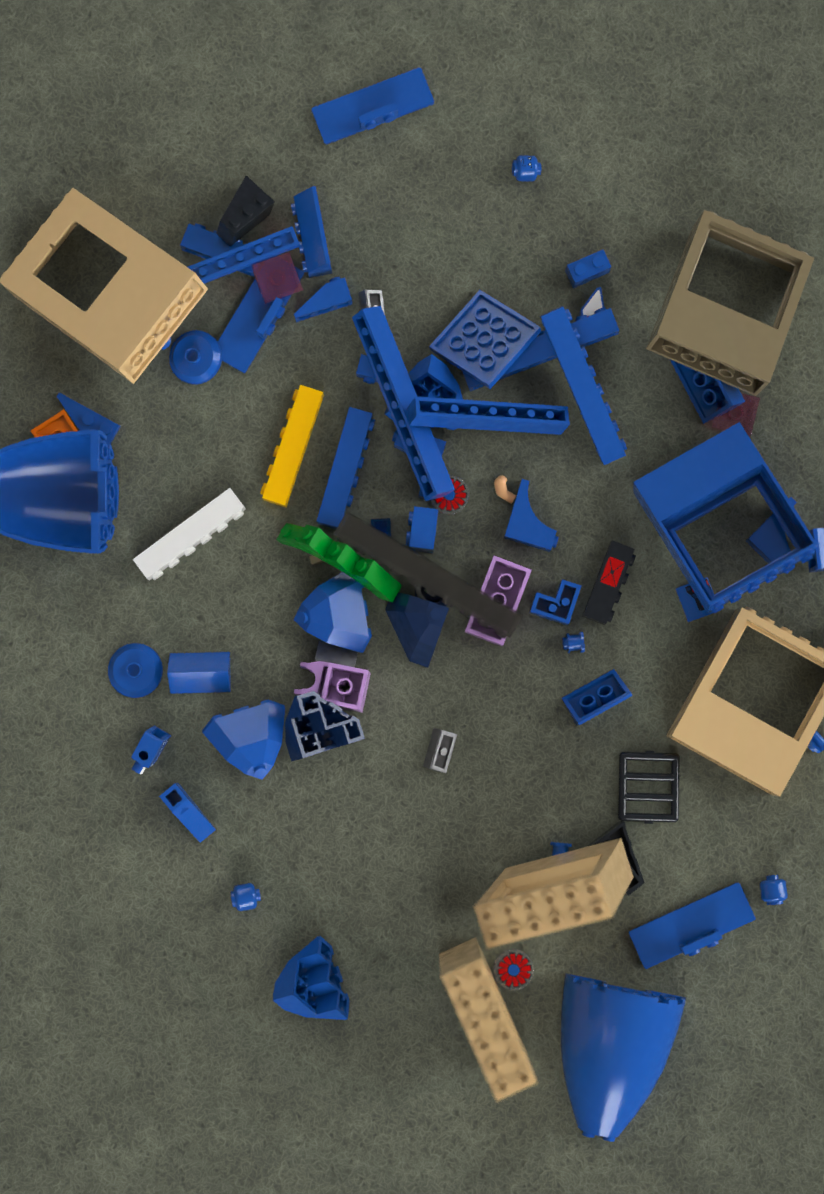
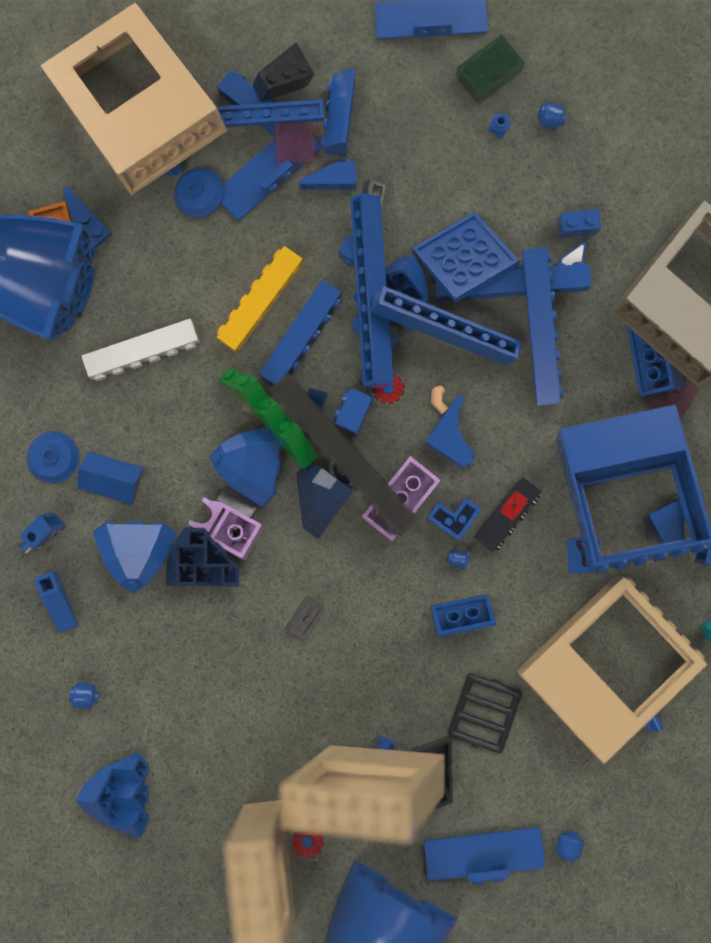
camera: 15 degrees right, 0 degrees up
(449, 141) = (489, 69): none -> clear green brick
(476, 198) = (499, 129): none -> blue brick

